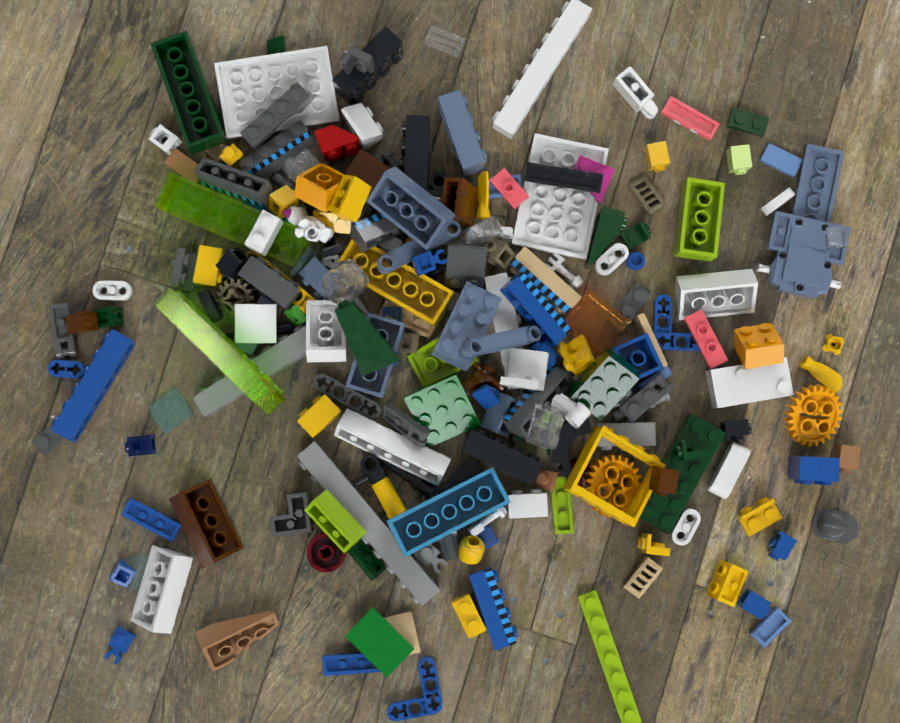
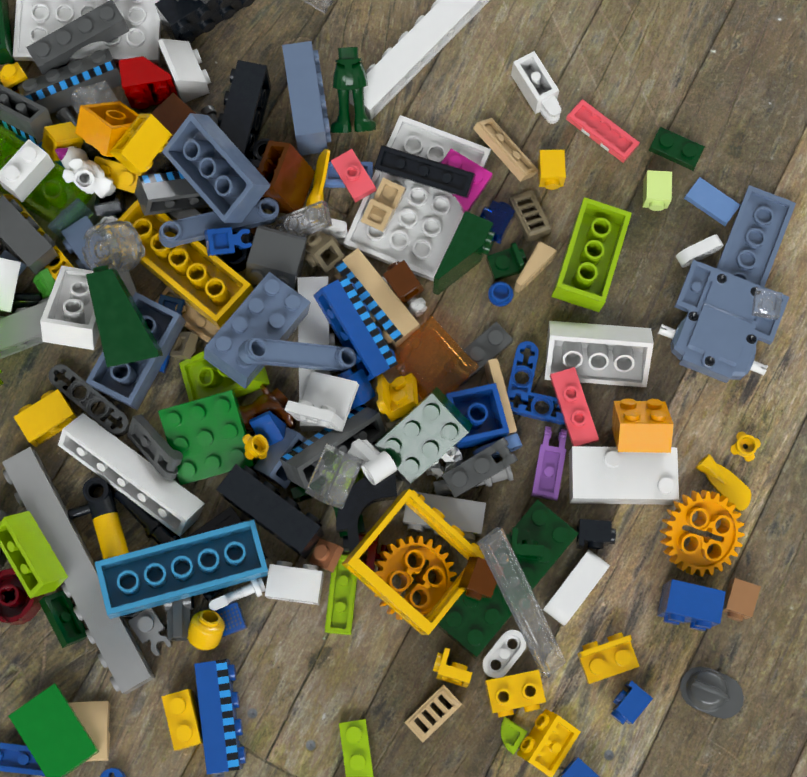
camera: 15 degrees right, 10 degrees down
(480, 412) = (260, 449): none -> yellow plate
(492, 113) = (347, 76): none -> dark green piece
(536, 208) = (383, 205): none -> tan slope
(563, 266) = (403, 281): none -> reddish brown brick
(611, 260) = (467, 285): white plate -> none
(619, 146) = (505, 149): none -> tan tile
(624, 202) = (502, 217): none -> clear blue brick
(658, 232) = (538, 261): none -> tan slope
(694, 384) = (549, 466): none -> medium lavender hinge
(695, 491) = (521, 602): none -> clear tile
(698, 553) = (515, 692): none -> yellow brick
(700, 581) = (511, 735): none -> lime tile

